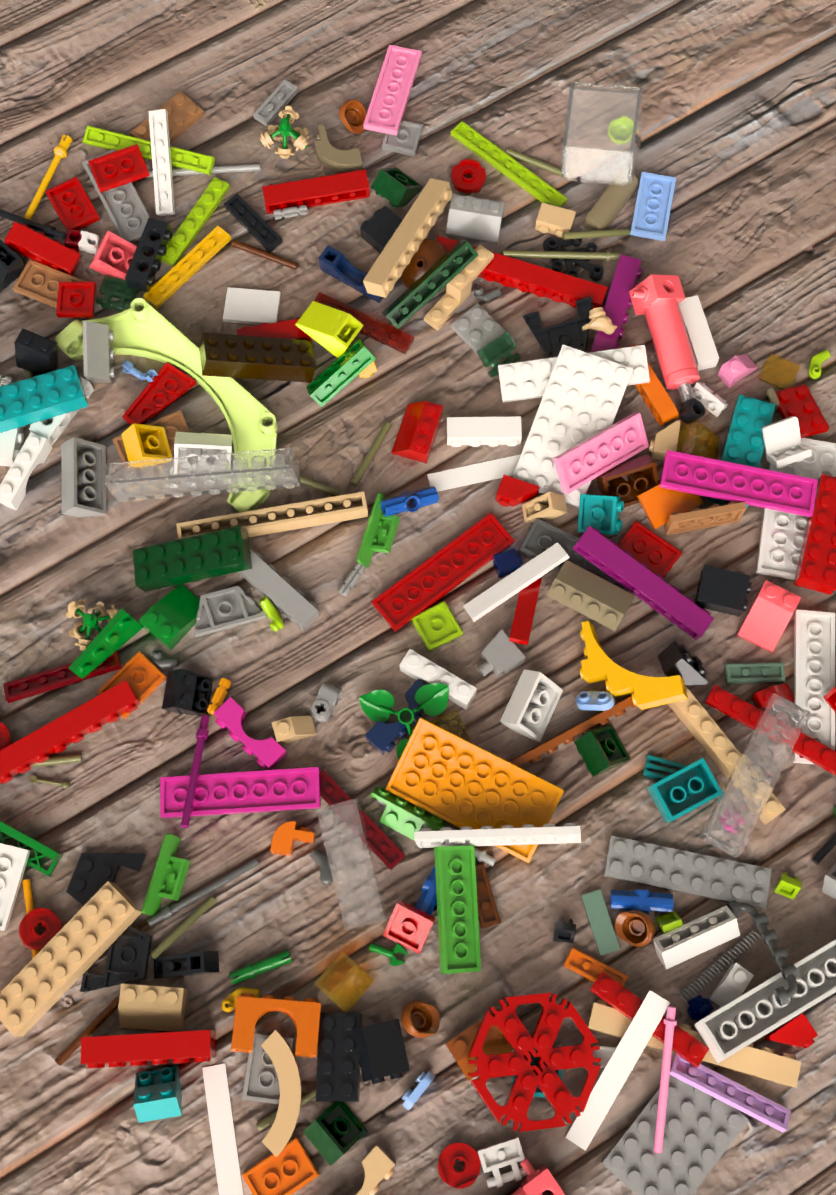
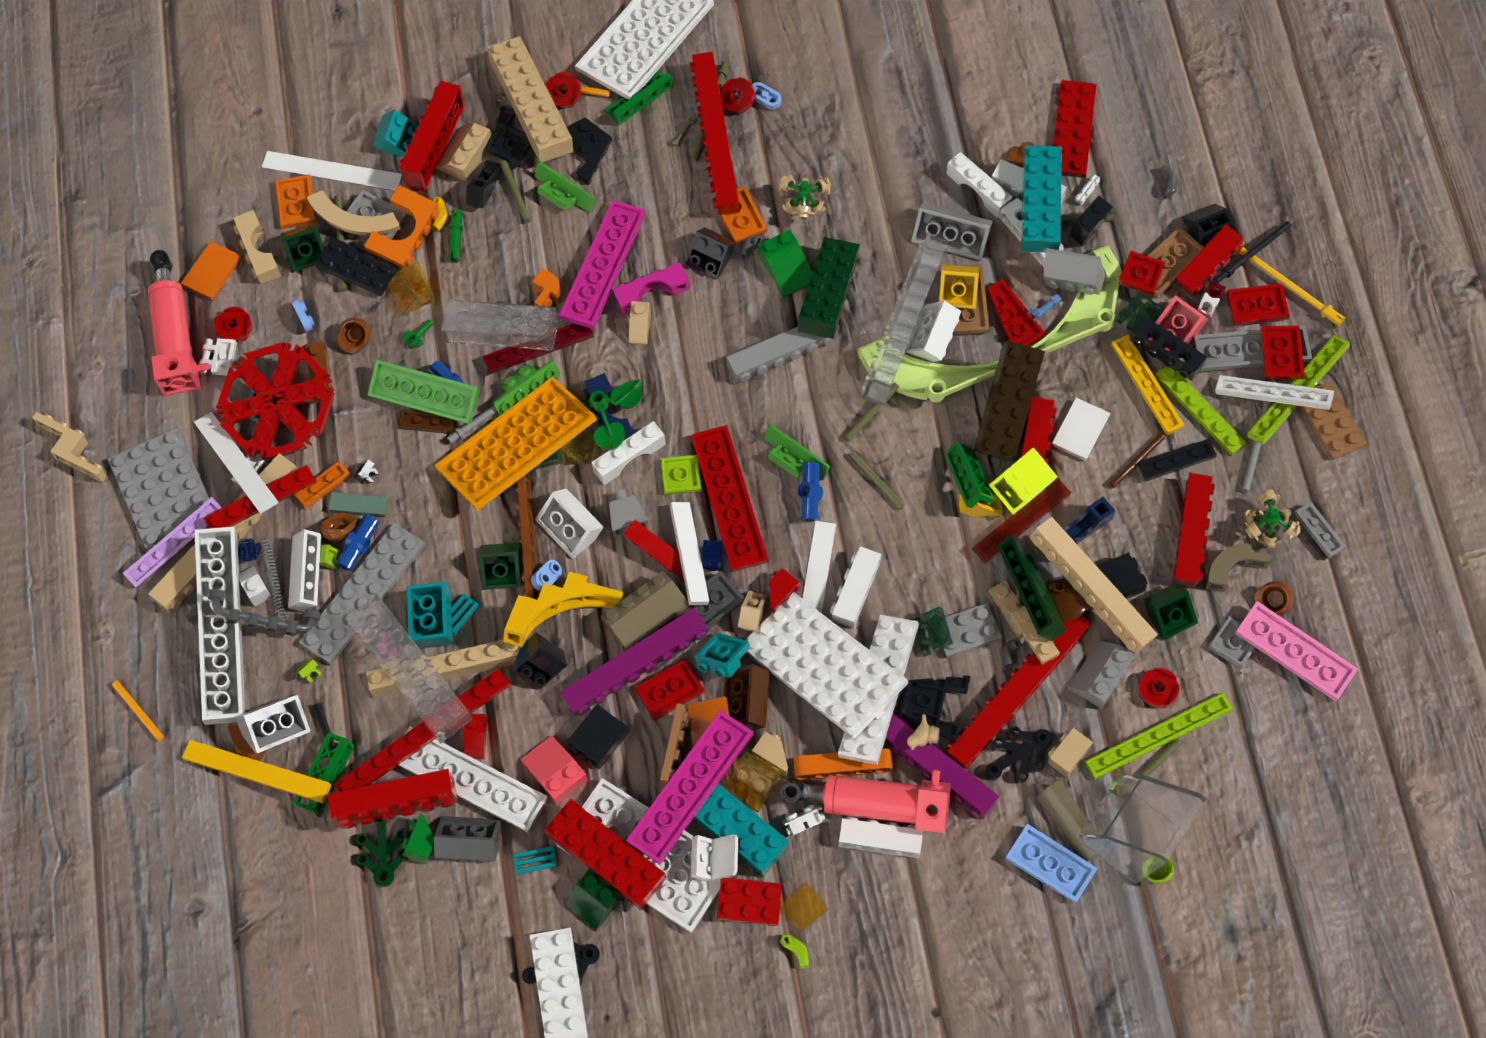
camera: 115 degrees right, 5 degrees down
(54, 679) = (770, 164): dark red plate -> none
(88, 1031) = (468, 101): reddish brown bar -> none
(111, 638) = (783, 203): green wing -> none
(167, 912) = (533, 185): dark grey bar -> none
(201, 736) = (668, 252): magenta bar -> none
(219, 695) = (697, 277): light orange axle -> none
(225, 610) = (773, 305): light grey wing -> none
(272, 614) = (743, 344): lime arm -> none
(282, 517) = (841, 370): tan brick -> none
(290, 212) = (1178, 500): light grey axle -> none
(326, 699) = (651, 356): light grey piece -> none
(351, 579) = (756, 417): light grey axle -> none
(381, 1051) = (343, 295): black brick -> none
(409, 926) = (429, 351): plate -> none
(418, 431) = (880, 529): red slope -> none
(495, 837) = (464, 436): white plate -> none
(596, 233) = (1037, 786): olive bar -> none
(601, 452) = (779, 674): bright pink plate -> none
(607, 255) = (1007, 785): olive bar -> none
(670, 1022) = (245, 506): bright pink bar -> none
(736, 369) = (823, 862): bright pink slope -> none
(754, 673) = (507, 733): sand green tile -> none
(770, 397) = (774, 877): dark tan tile -> none
(794, 1033) = (187, 616): red slope -> none

